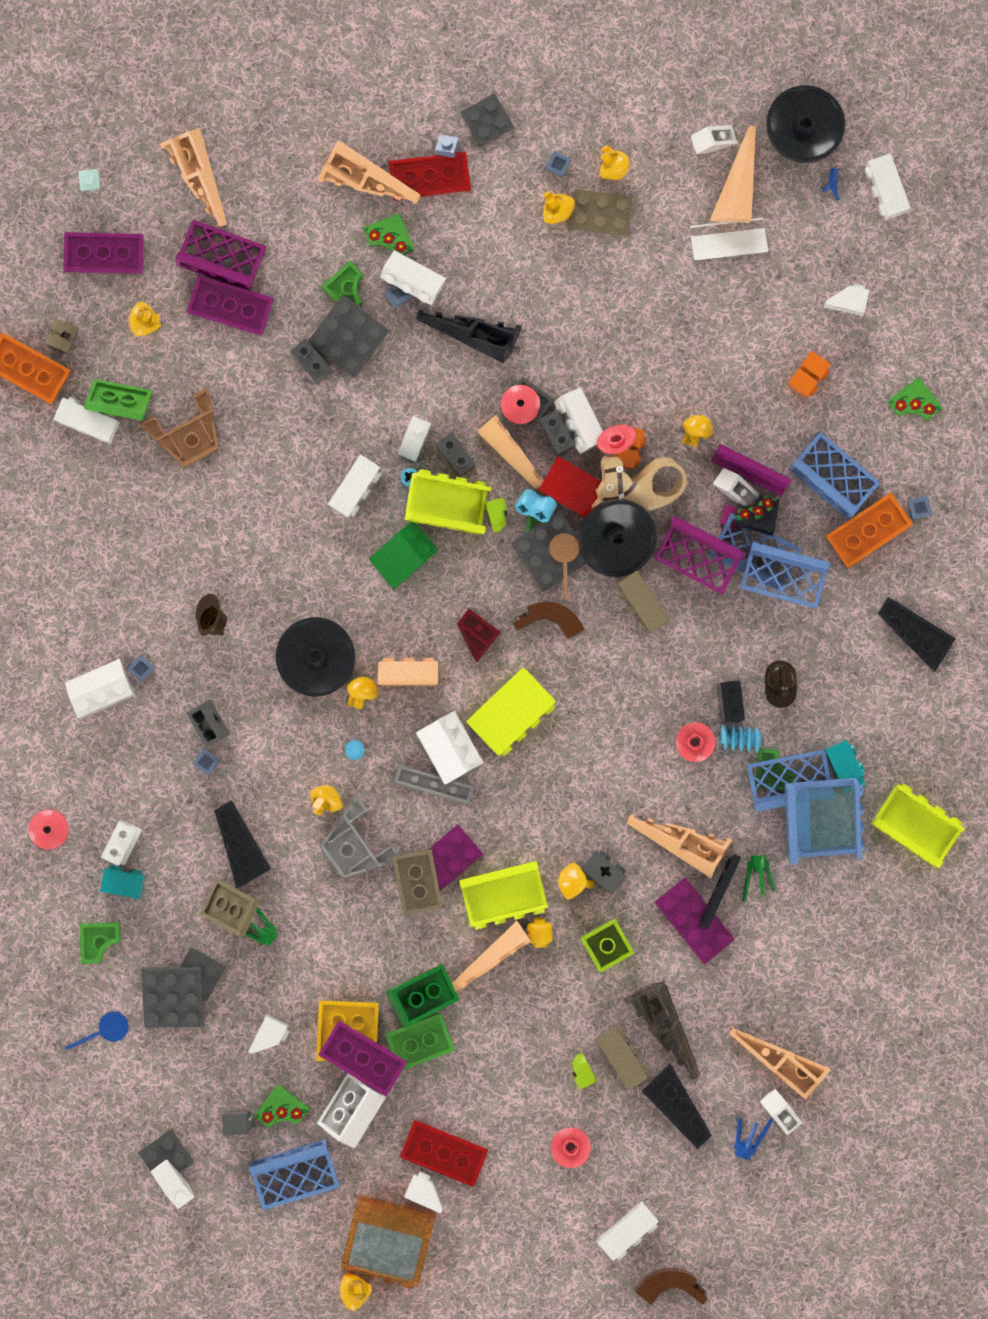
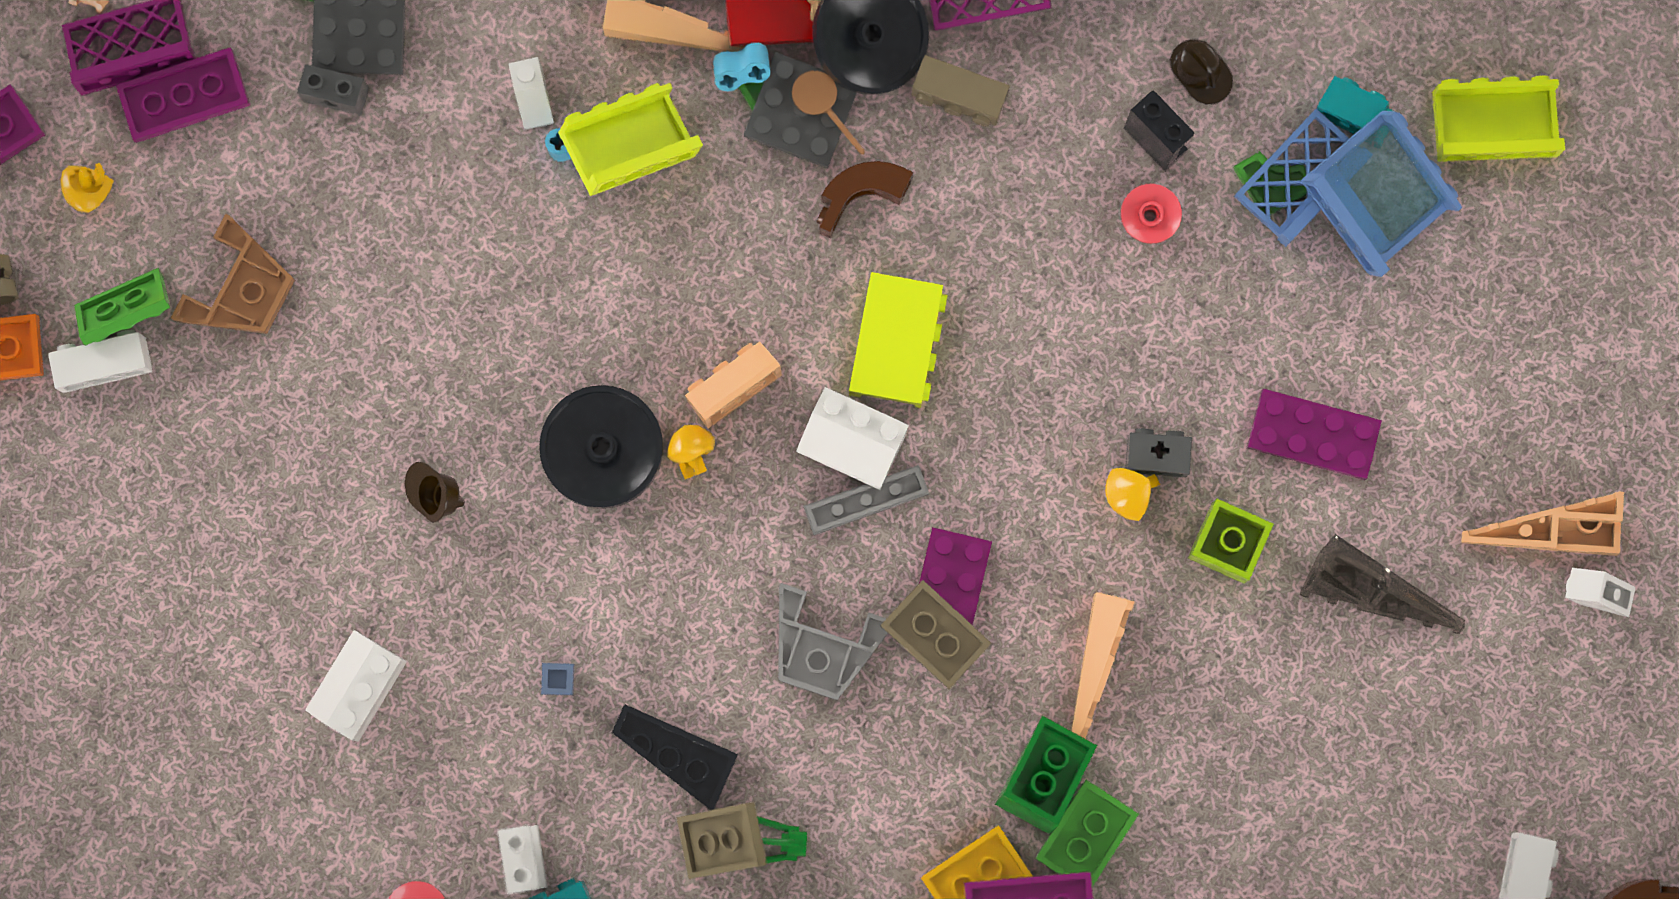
camera: 30 degrees left, 5 degrees down
(141, 668) = (390, 621): sand blue plate -> none
(208, 723) = (524, 627): dark grey brick -> none
(325, 798) = (742, 614): yellow piece -> none
(354, 750) = (735, 528): medium azure plate -> none
(355, 487) = (500, 204): white brick -> none
(403, 554) = (621, 242): green slope -> none
(455, 454) = (596, 76): dark grey brick -> none
(477, 633) = (783, 275): dark red wing -> none
(497, 514) = (700, 112): lime rock -> none
(503, 894) = (1054, 573): neon yellow panel -> none
(540, 932) = (1136, 586): yellow head -> none
(574, 1157) = (1391, 829): coral dish -> none
(582, 1072) = (1318, 723): lime rock -> none
(622, 1057) = (1354, 668): dark tan brick -> none
(674, 1102) = (1457, 677): black wing -> none
(697, 850) = (1253, 344): light nougat wedge -> none
(719, 892) = (1319, 374): black tile -> none
(740, 738) = (1202, 168): medium azure piece -> none
(746, 1148) = (1593, 669): blue plant -> none
(759, 865) = (1341, 307): green plant -> none

